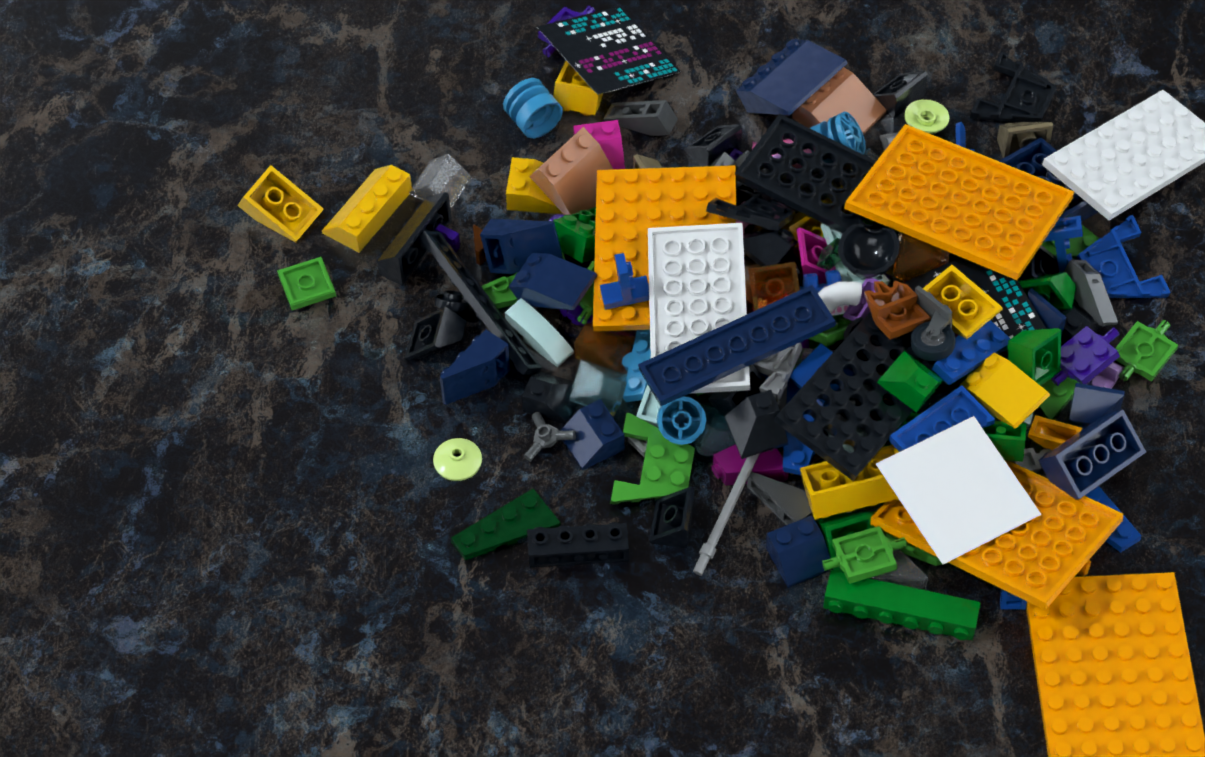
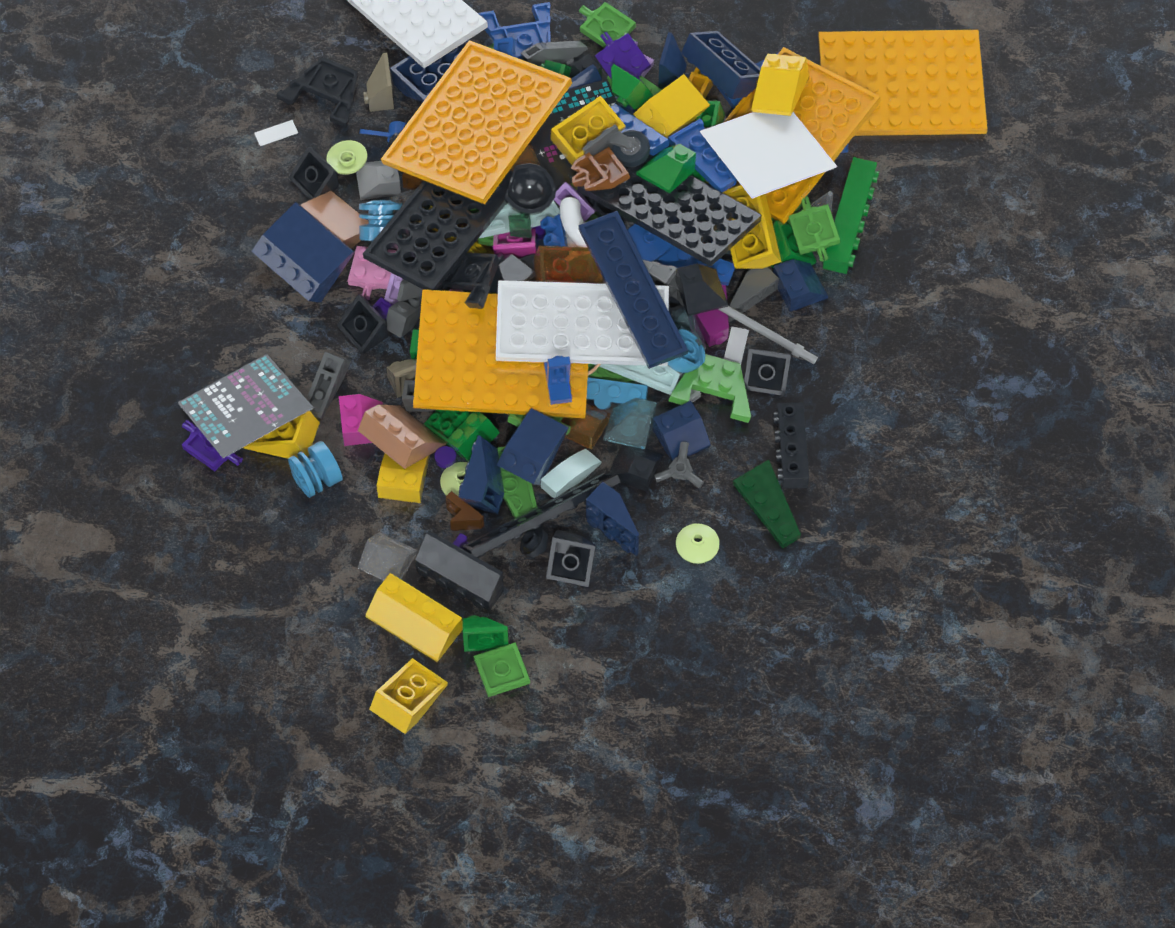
camera: 90 degrees left, 5 degrees up
(345, 258) = (483, 634): none -> green slope
(711, 492) = (736, 344): none -> white sticker
(957, 60) = (276, 133): none -> white sticker
(1054, 500) = (780, 84): none -> yellow slope

